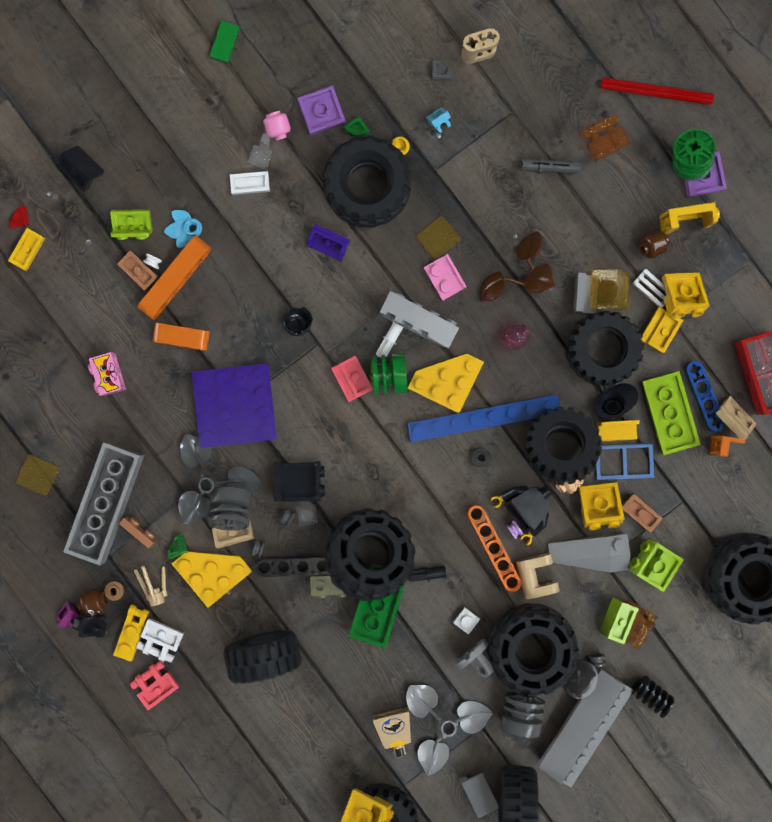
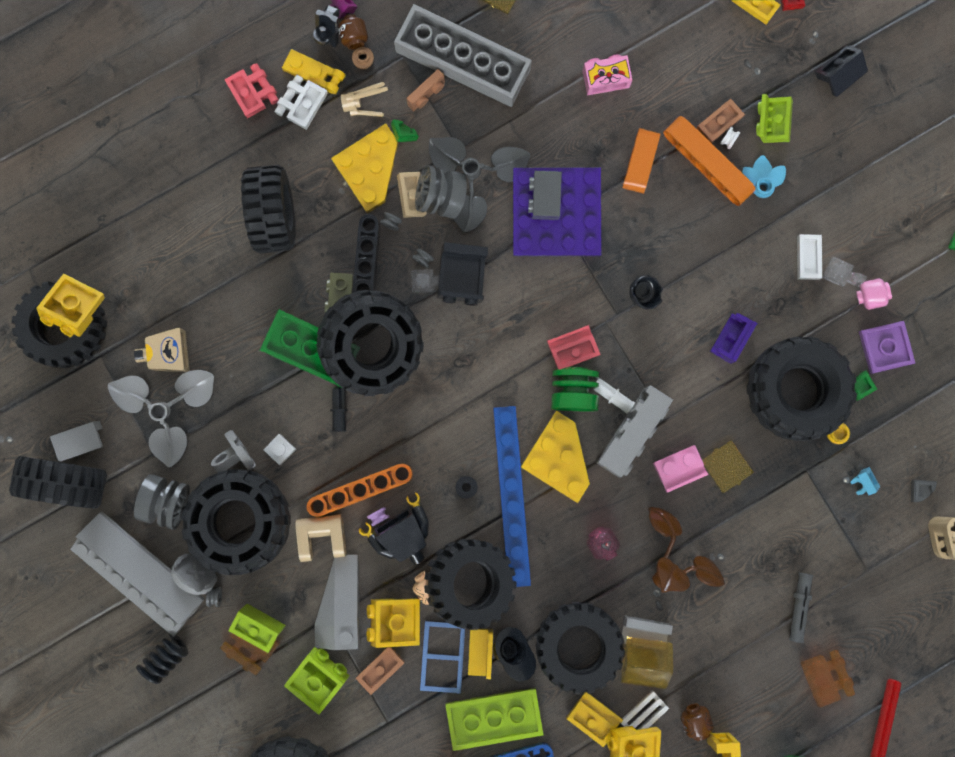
camera: 95 degrees right, 5 degrees down
(222, 416) = (546, 195): none -> dark grey brick

